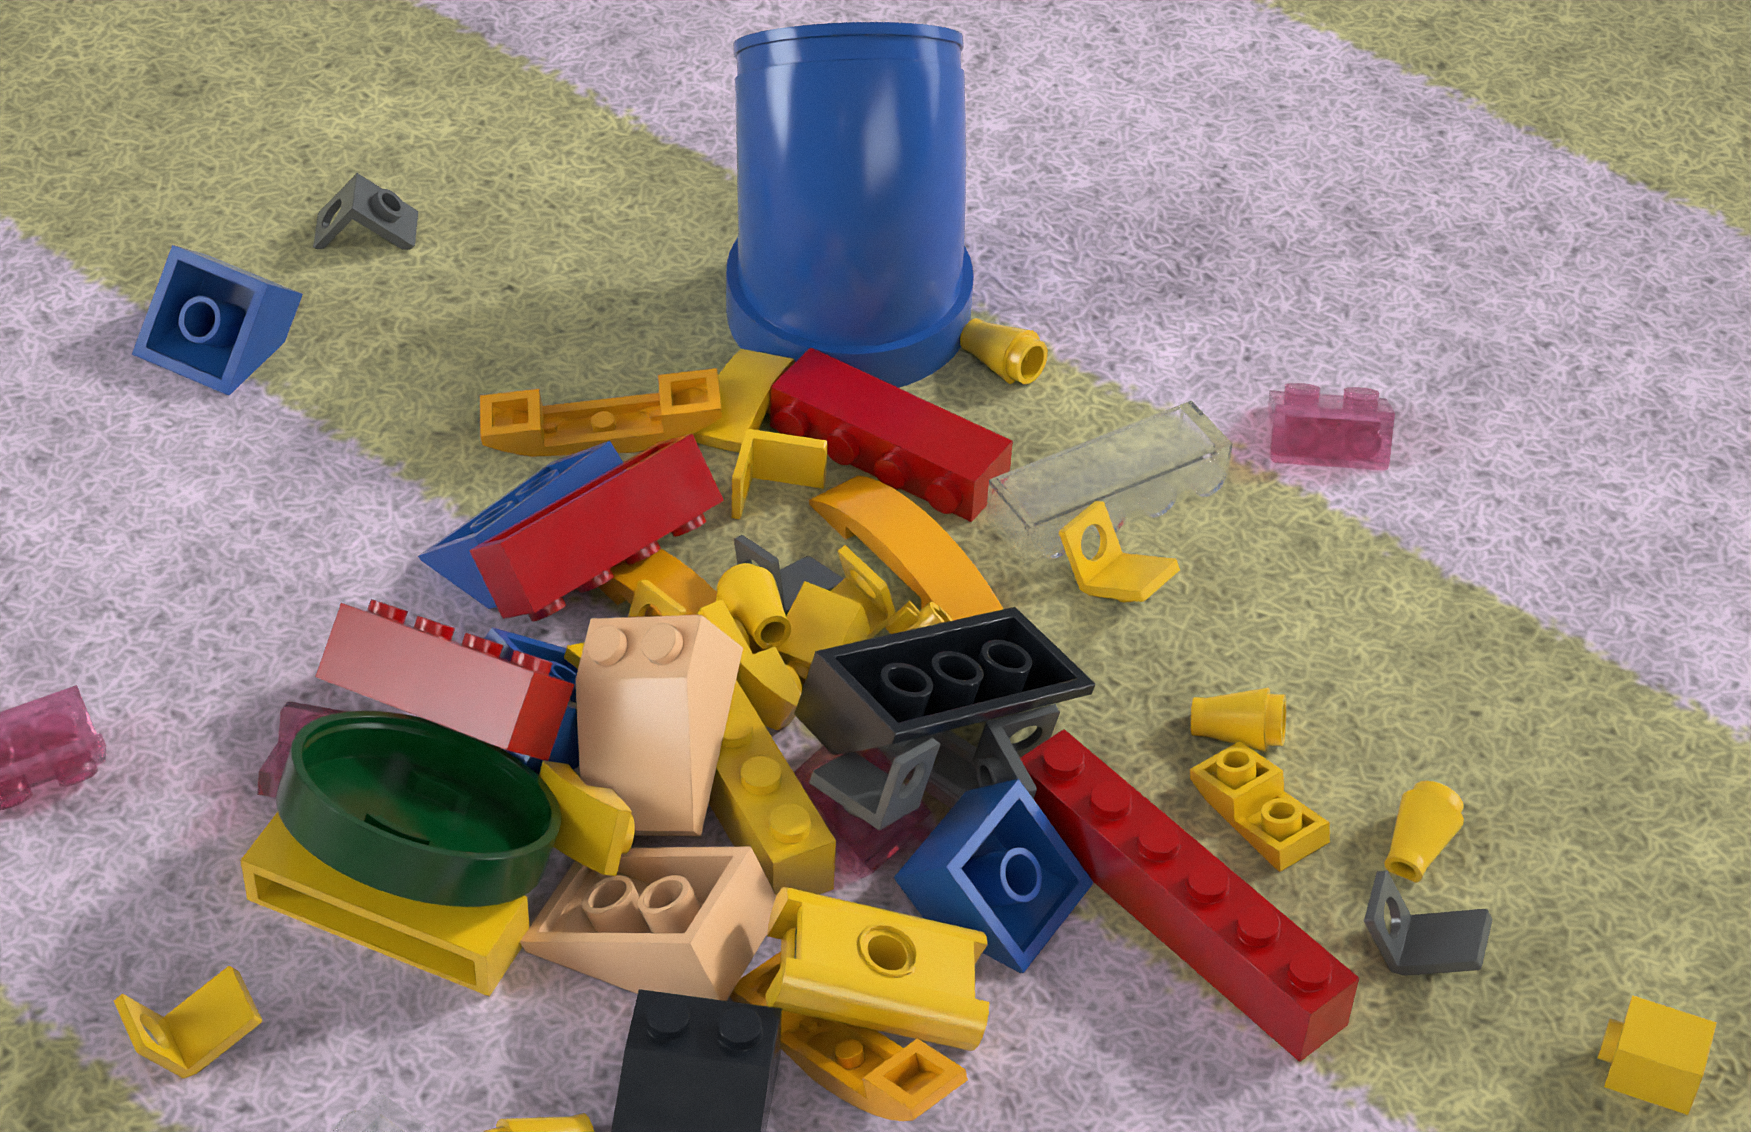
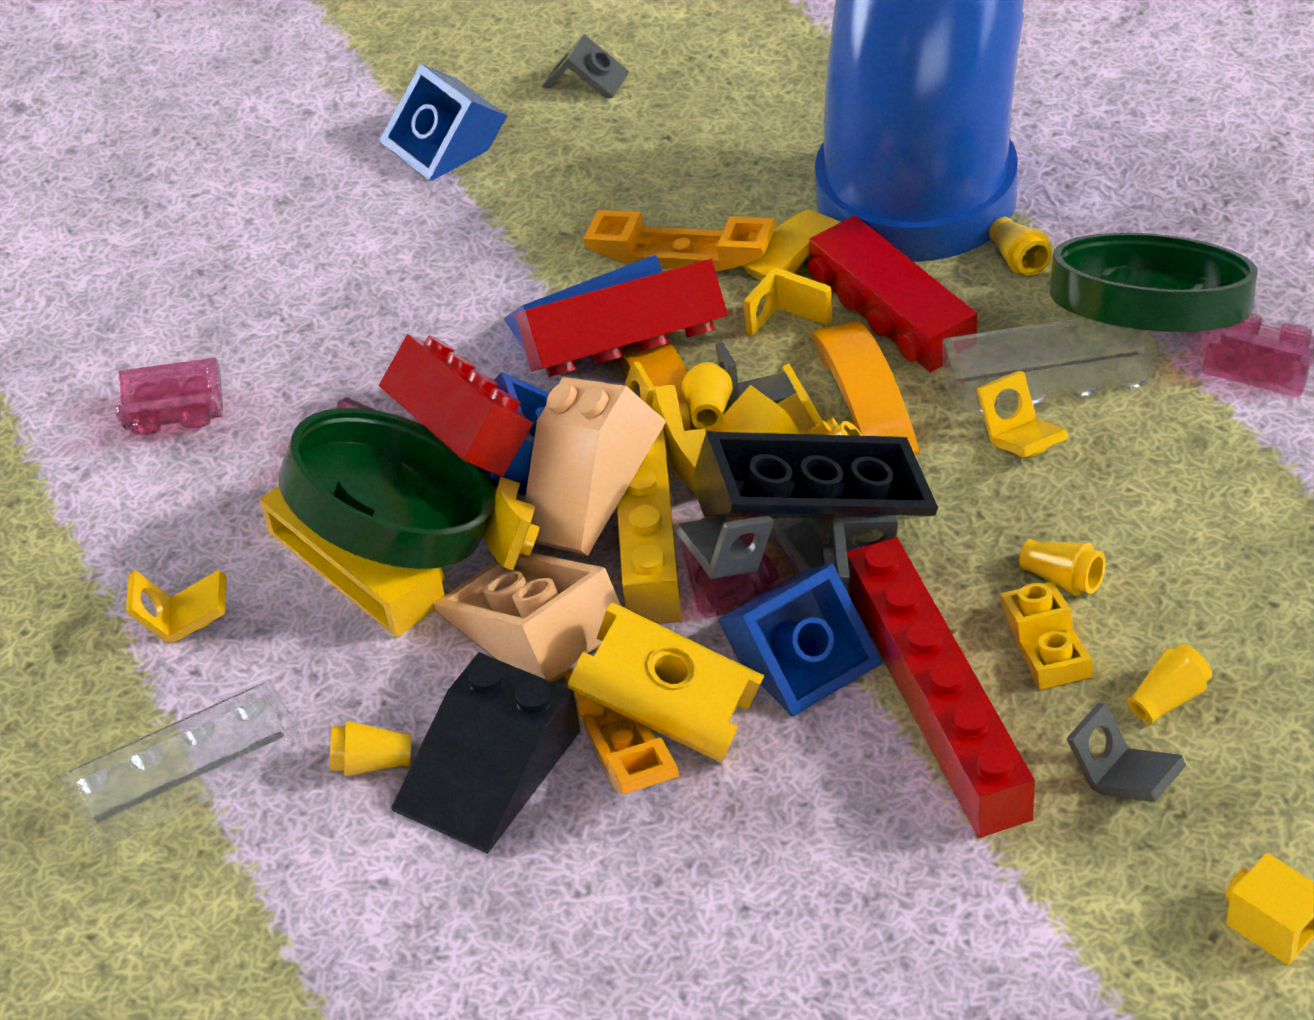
camera: 30 degrees right, 0 degrees up
(1192, 367) = (1153, 282): none -> dark green brick

